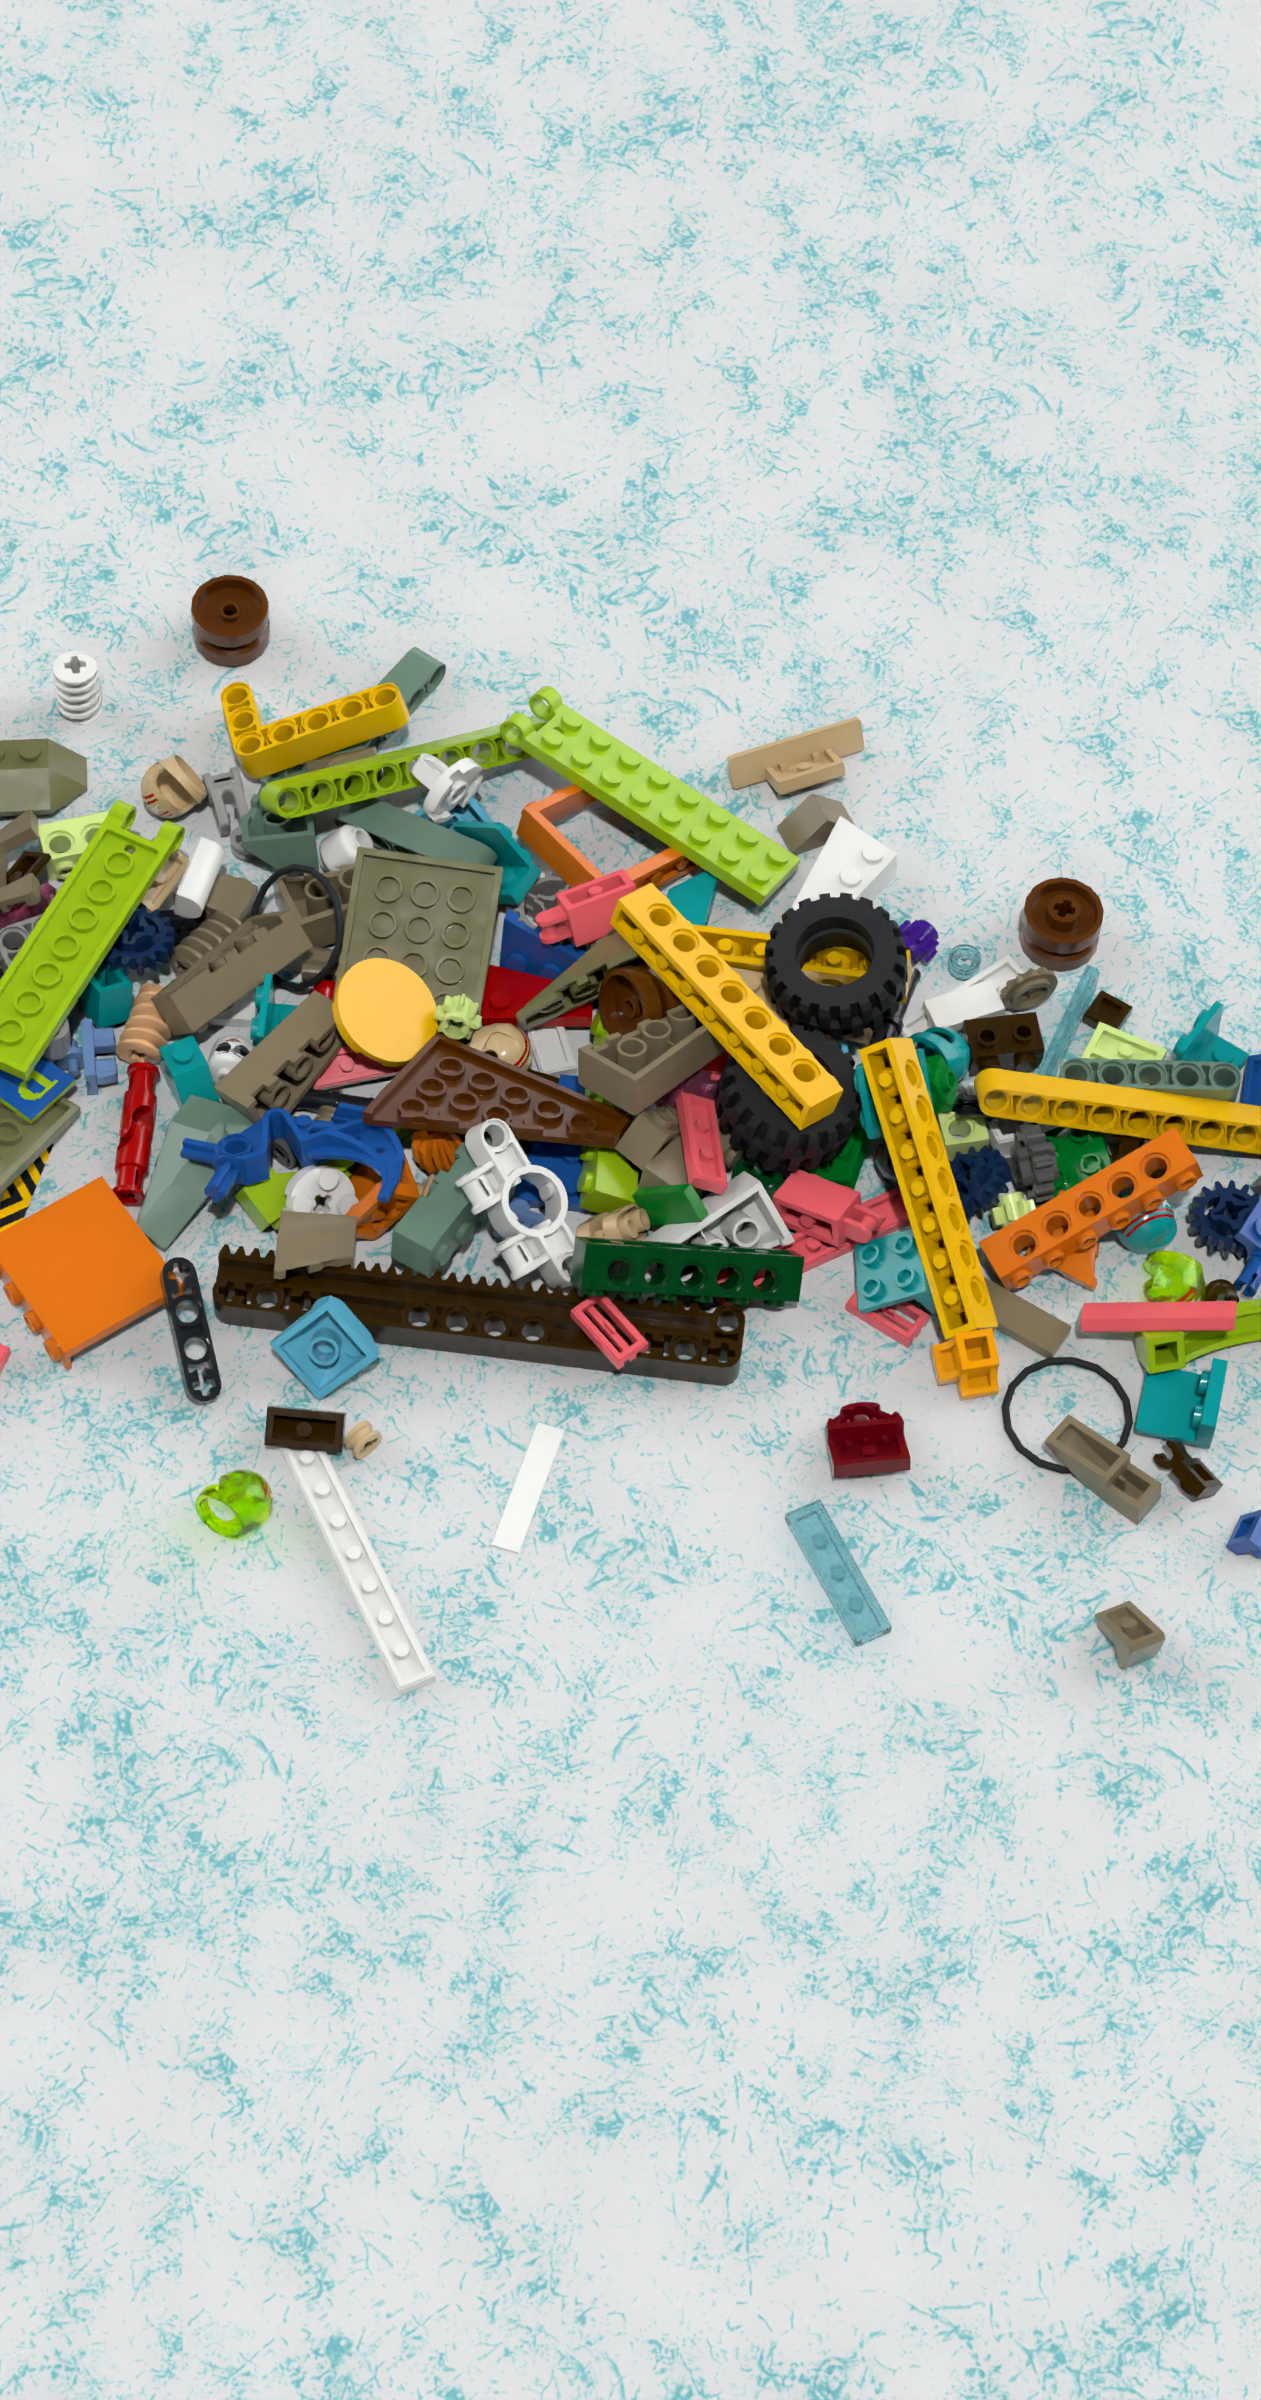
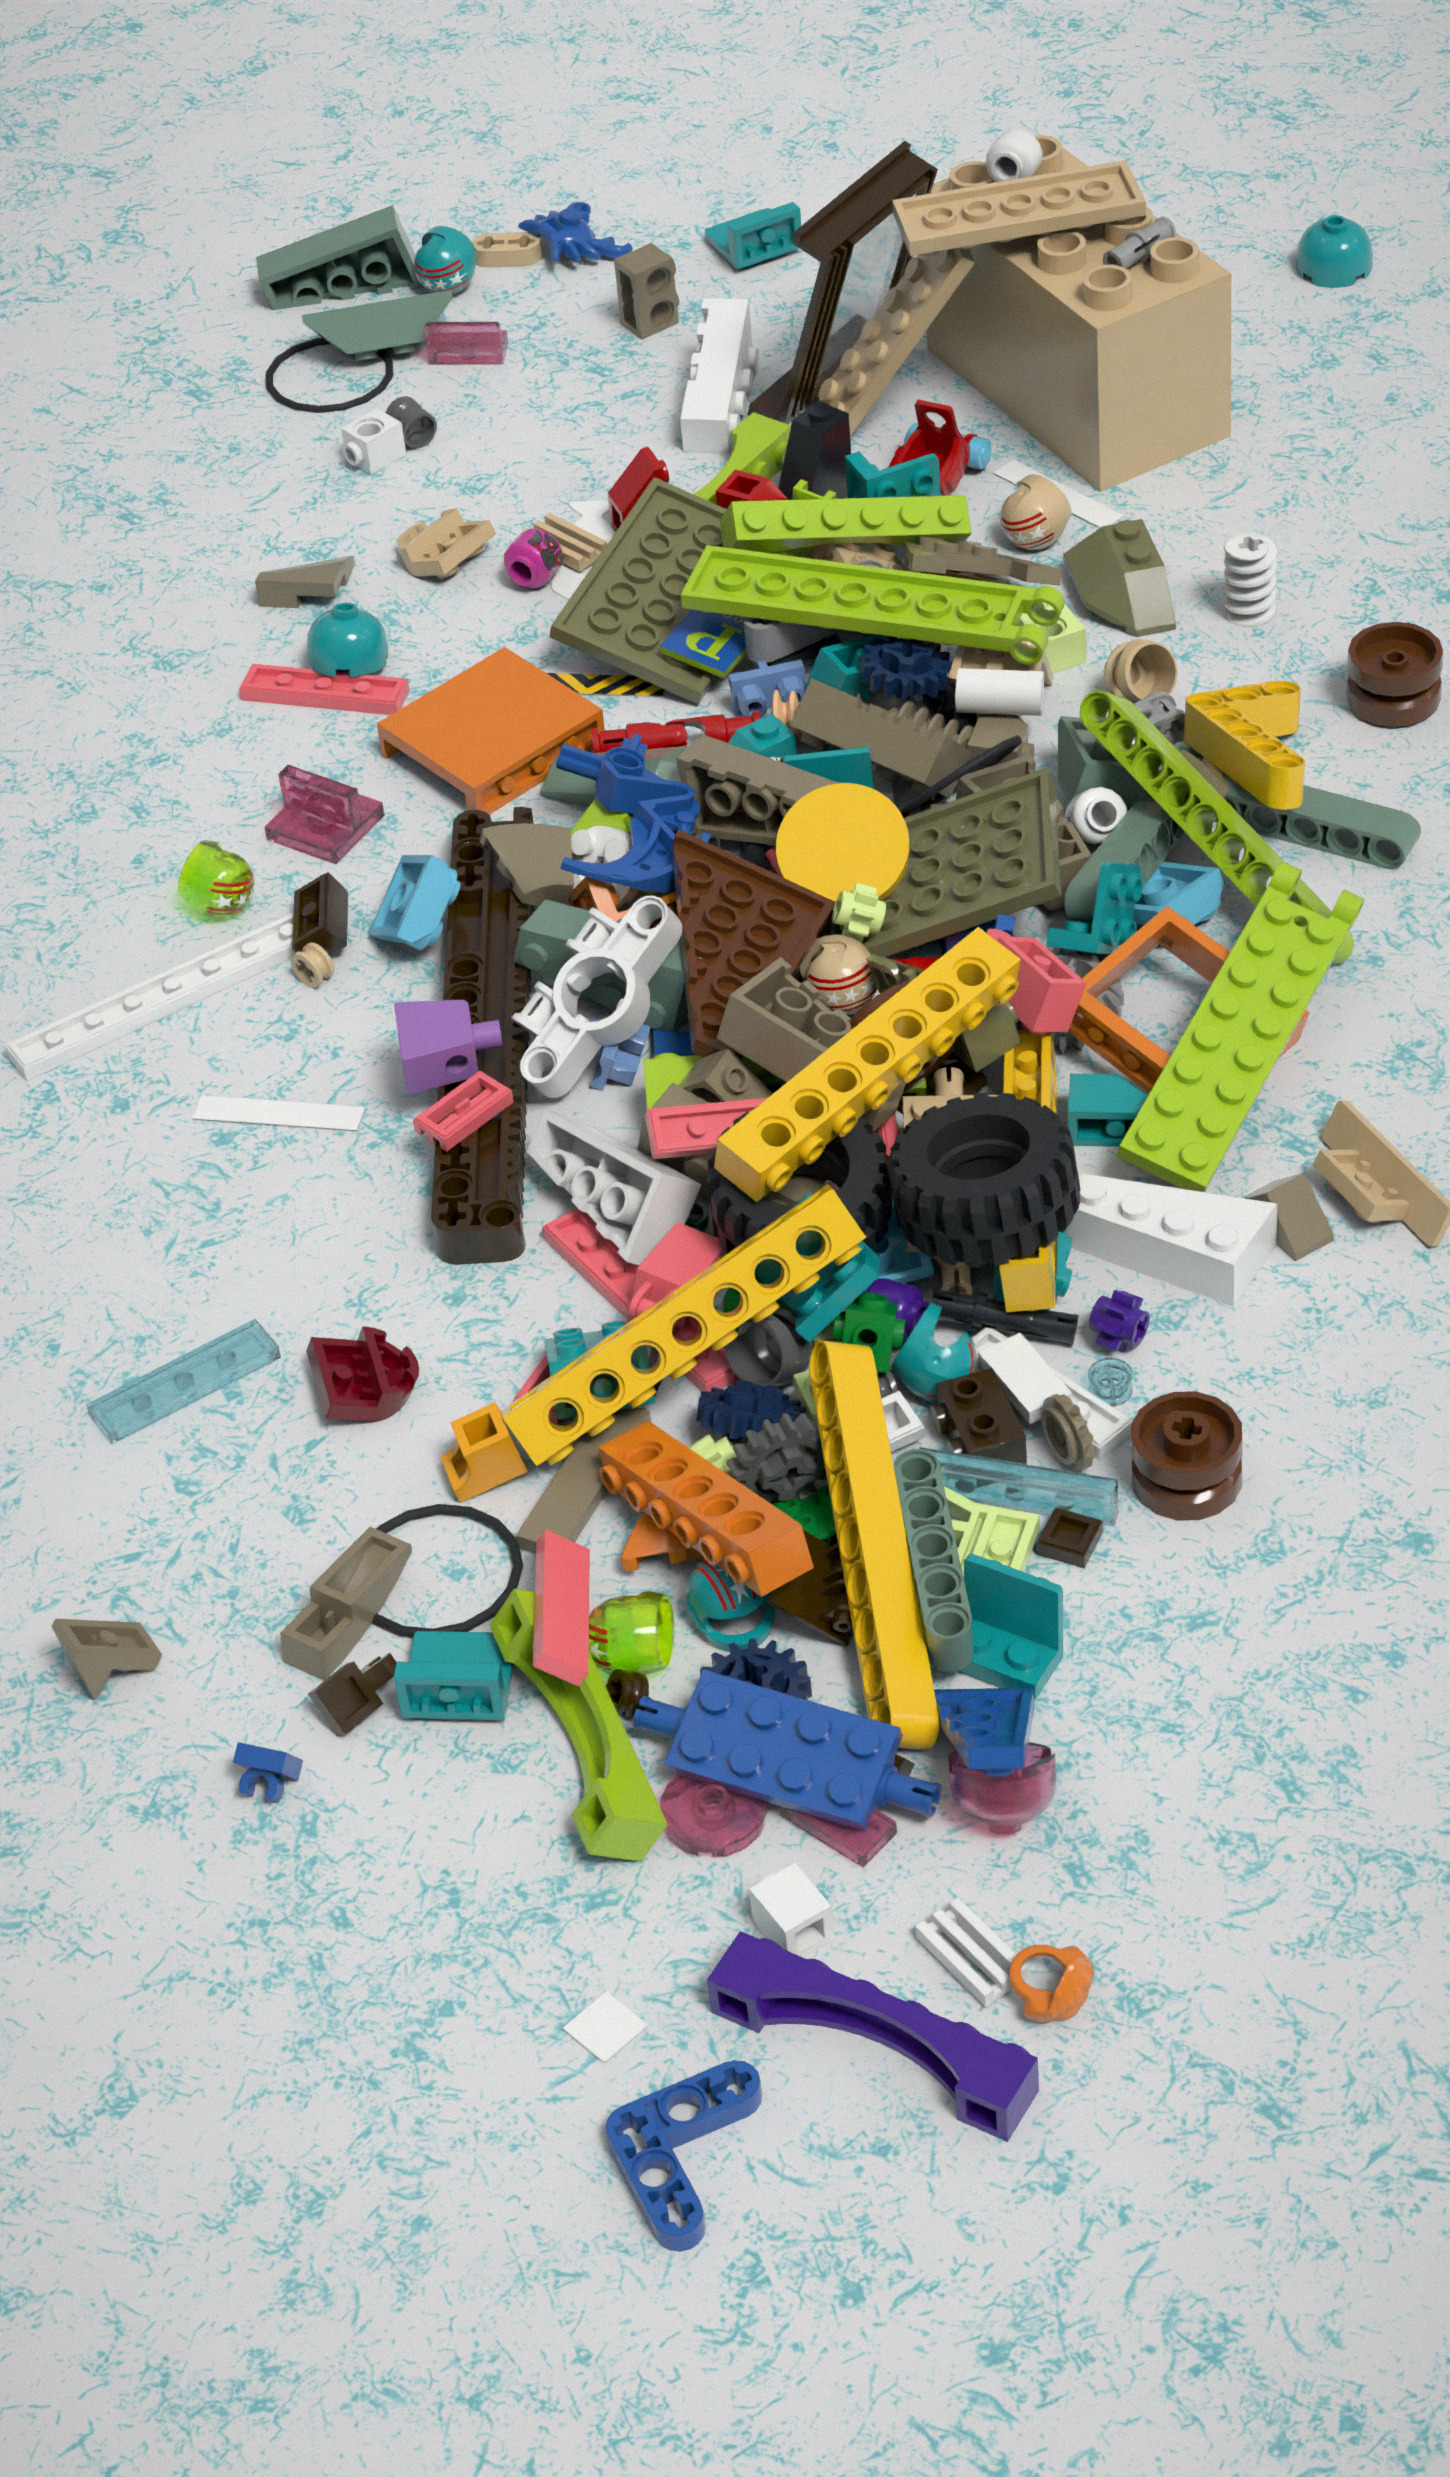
camera: 90 degrees right, 15 degrees down
(156, 1418) = (321, 815): none -> clear pink bracket
(187, 1331) = (423, 812): black beam -> none
(446, 784) = (1174, 841): white tile -> none
(535, 1333) = (441, 1042): none -> medium lavender torso
(595, 1255) = (544, 1151): dark green brick -> none
(623, 1223) = (602, 1096): tan brick -> none
(671, 1204) = (627, 1122): green tile -> none

